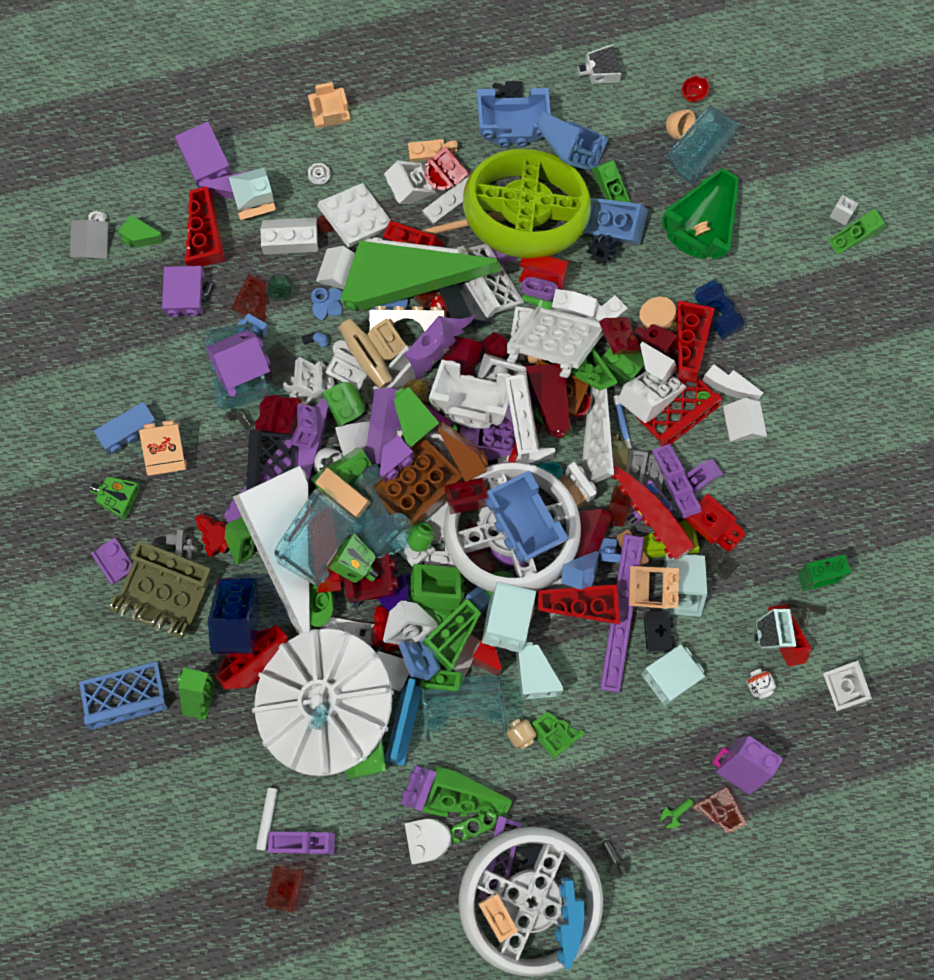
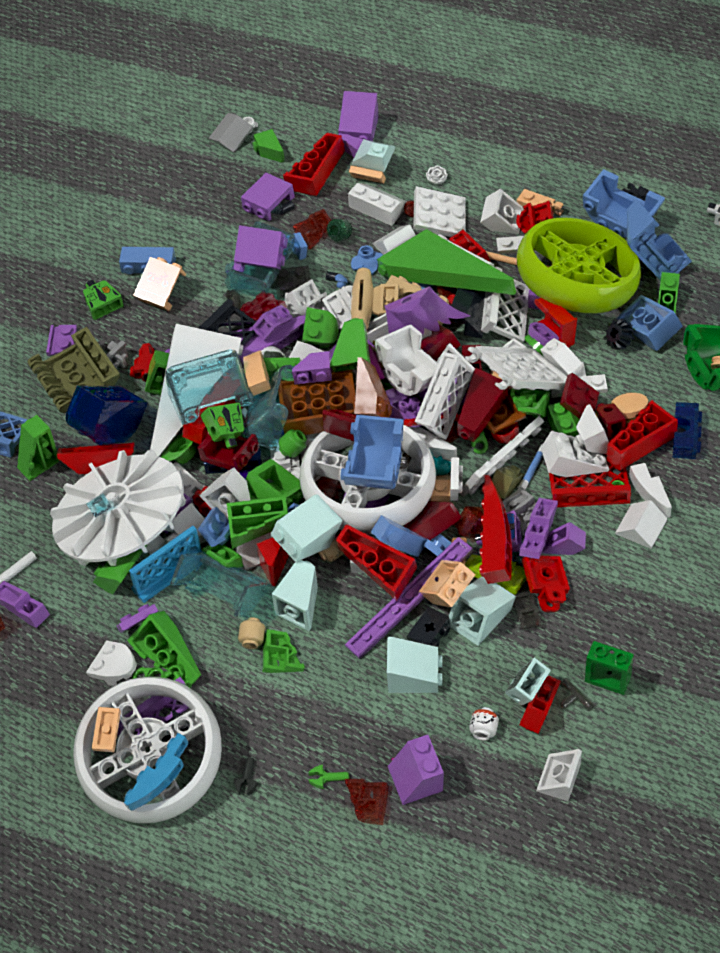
camera: 45 degrees right, 20 degrees down
(328, 106) = (483, 136): light nougat panel -> none

